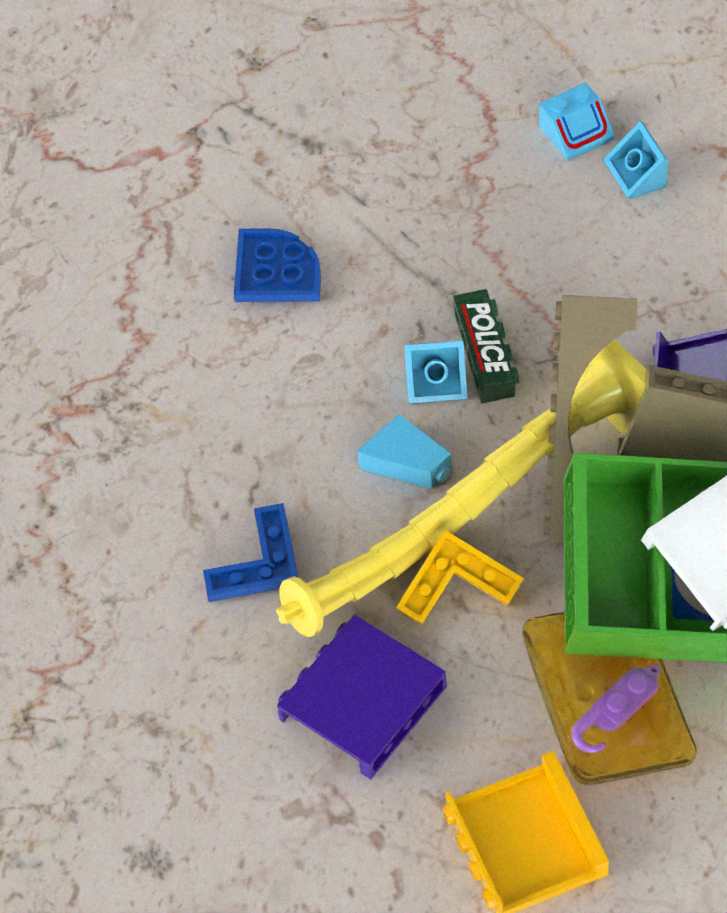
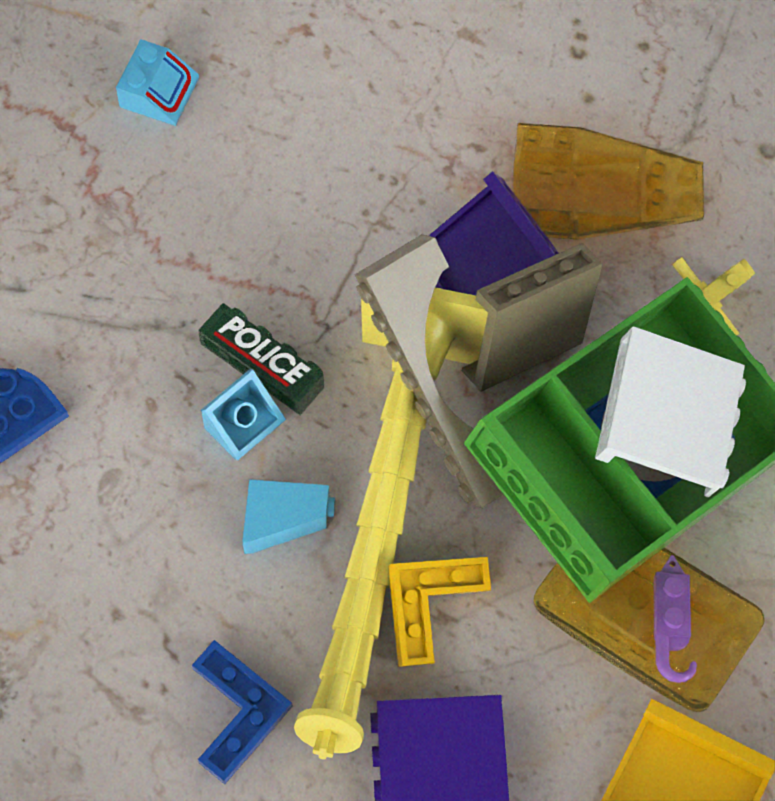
camera: 45 degrees left, 10 degrees up
(638, 163) = (247, 88): medium azure slope -> none

